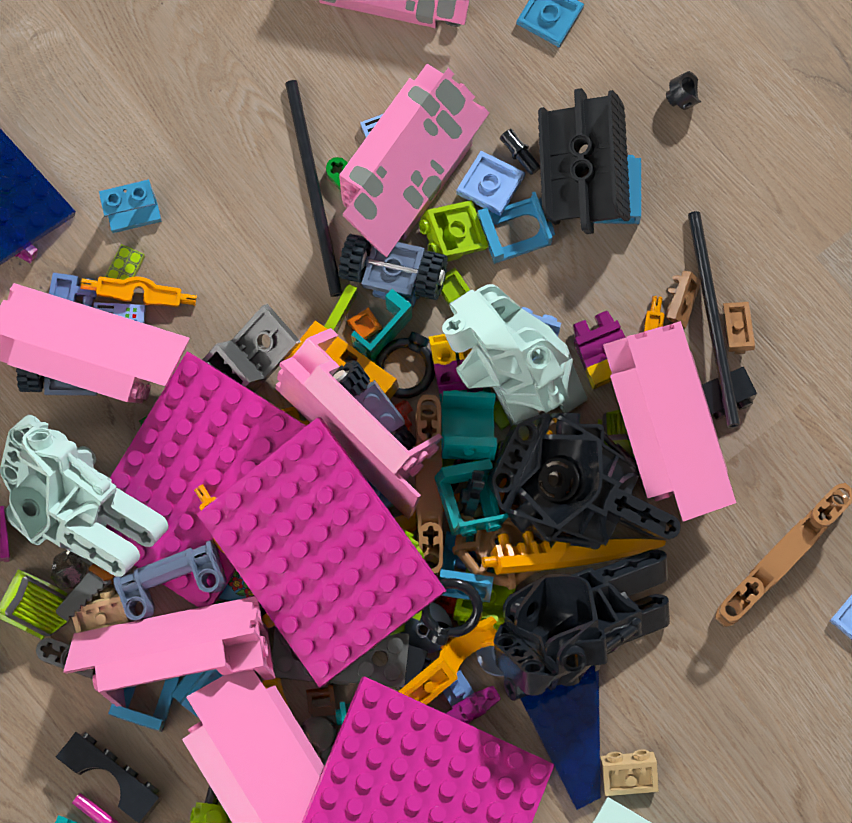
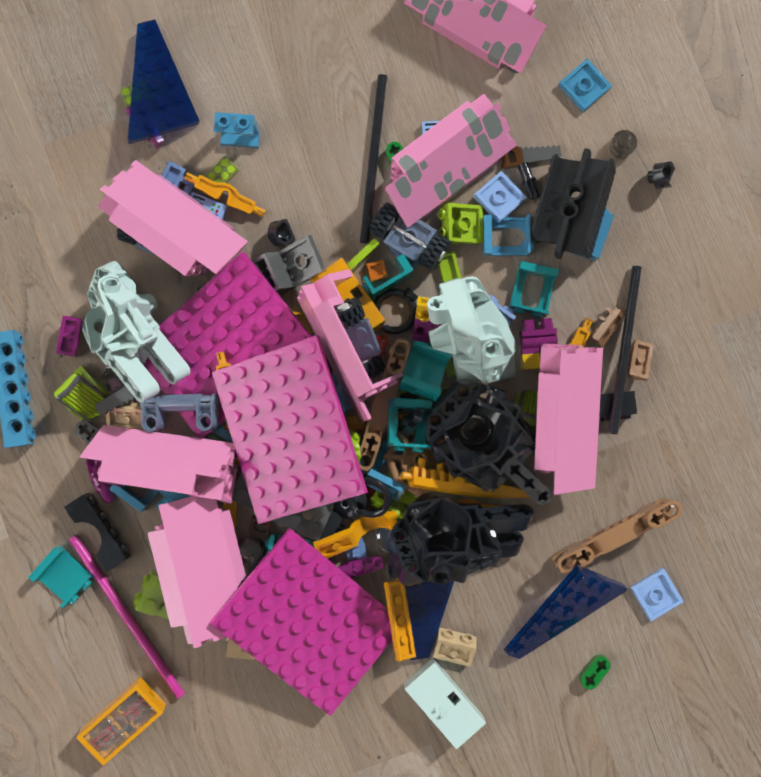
camera: 20 degrees right, 10 degrees up
(90, 710) = (100, 487): none -> magenta hinge
(225, 316) = (280, 233): none -> black piece
(510, 120) = (529, 155): none -> dark grey piece
(544, 758) = (399, 620): none -> light orange tile
(572, 257) = (548, 273): none -> teal panel
(622, 69) = (623, 144): none -> clear smoke piece
(757, 661) = (570, 602): none -> clear blue wing
(829, 746) = (598, 674): none -> green beam

